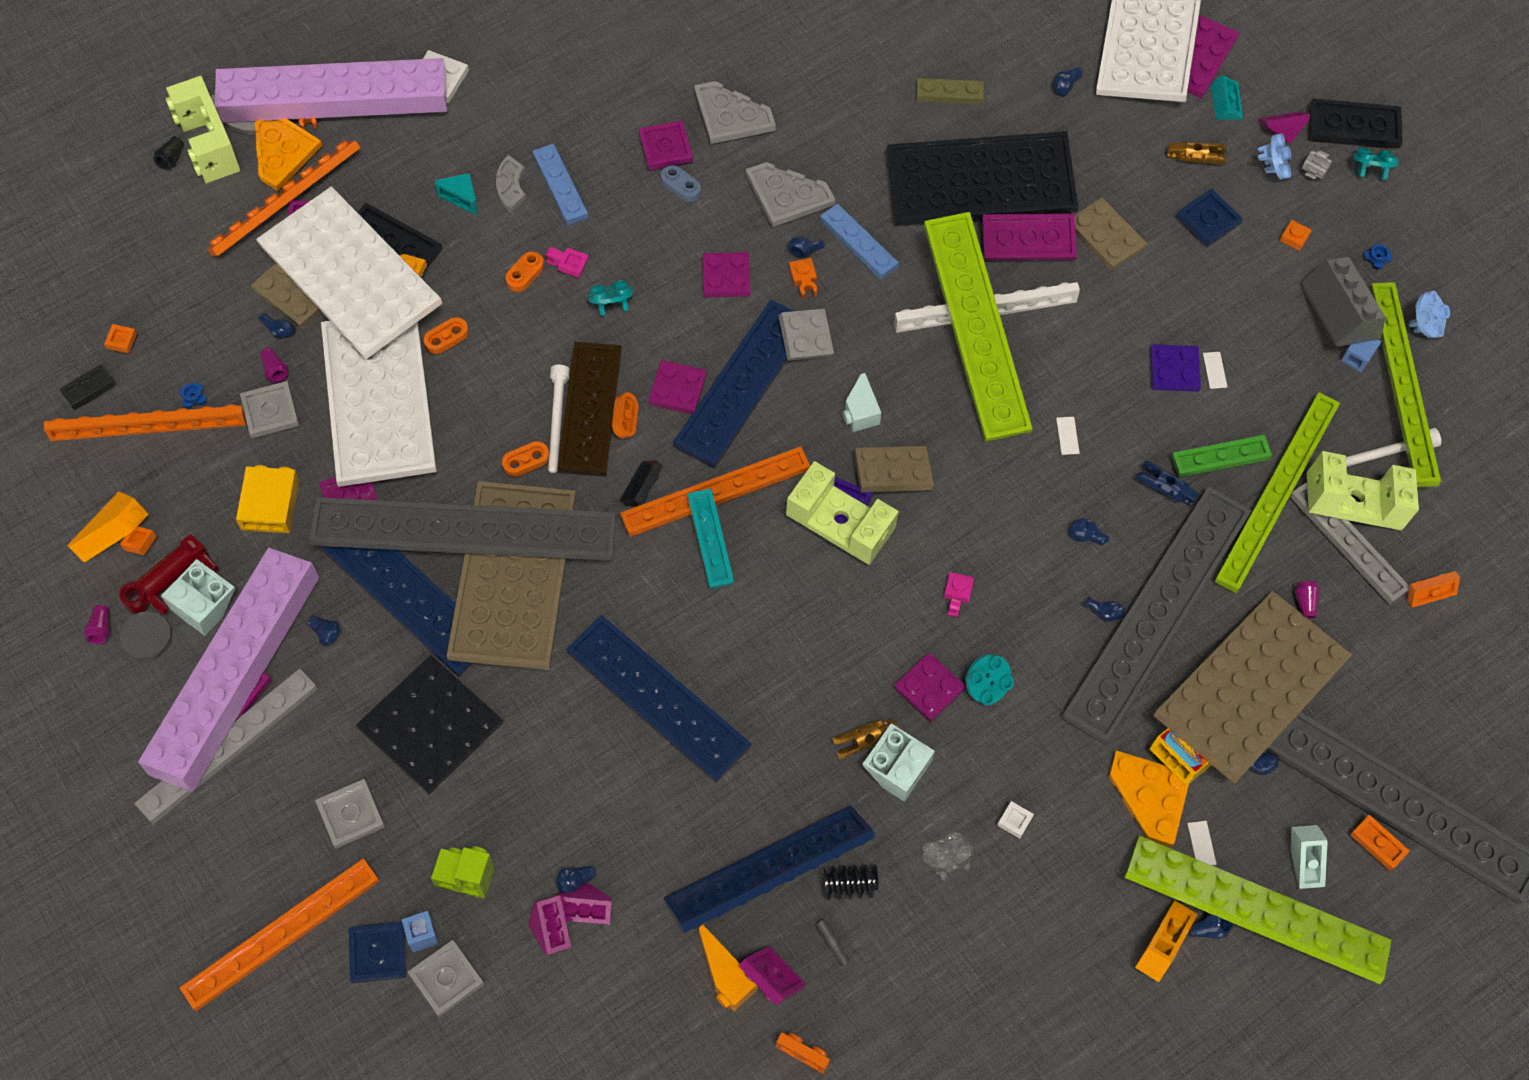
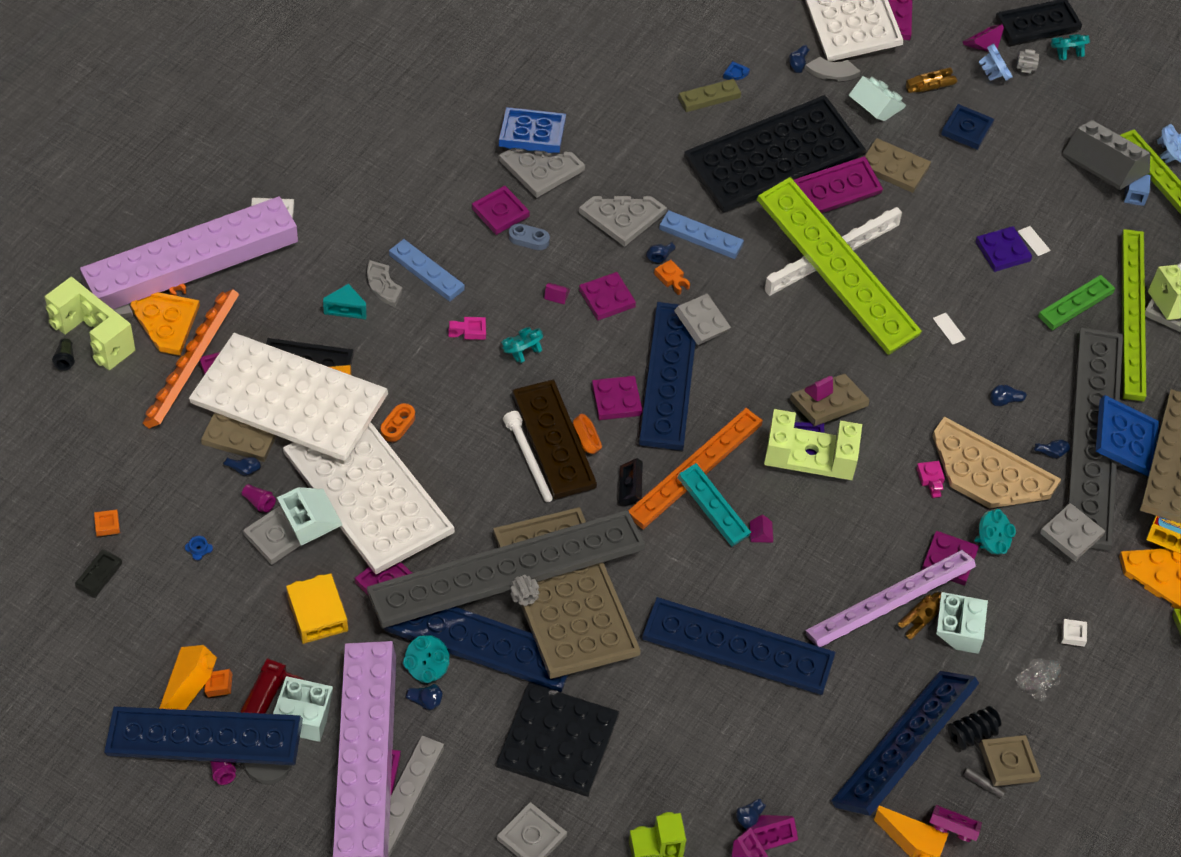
camera: 25 degrees left, 10 degrees down
(91, 590) = (204, 735): none -> dark blue plate
(145, 423) = (170, 584): orange plate -> none
(302, 400) = (309, 513): none -> light aqua slope
(342, 592) = (419, 651): none -> teal plate
(465, 559) = (524, 590): none -> light grey gear
(524, 458) = (520, 498): orange plate -> none
(527, 271) = (436, 345): orange plate -> none
(676, 253) = (556, 293): none -> magenta slope
(741, 69) = (532, 130): none -> blue plate
(749, 583) = (761, 530): none -> magenta slope
(838, 708) = (890, 598): none -> lavender plate
(861, 406) = (778, 359): light aqua slope -> none
(869, 931) = (1009, 760): none -> dark tan plate
(884, 455) = (821, 388): none -> magenta slope
(991, 74) = (736, 71): none -> blue tile
(1021, 608) = (989, 471): none -> tan plate
(1071, 710) = (1072, 532): none -> light grey plate
(1102, 108) = (832, 70): none -> light grey tile
(1125, 153) = (877, 98): none -> light aqua slope
(1167, 484) = (1047, 337): dark blue hinge -> none
(1189, 624) = (1126, 435): none -> blue plate
(1226, 99) = (929, 34): teal slope -> none
(1295, 235) = (1039, 119): orange plate -> none
(1381, 251) = (1109, 114): blue plate -> none

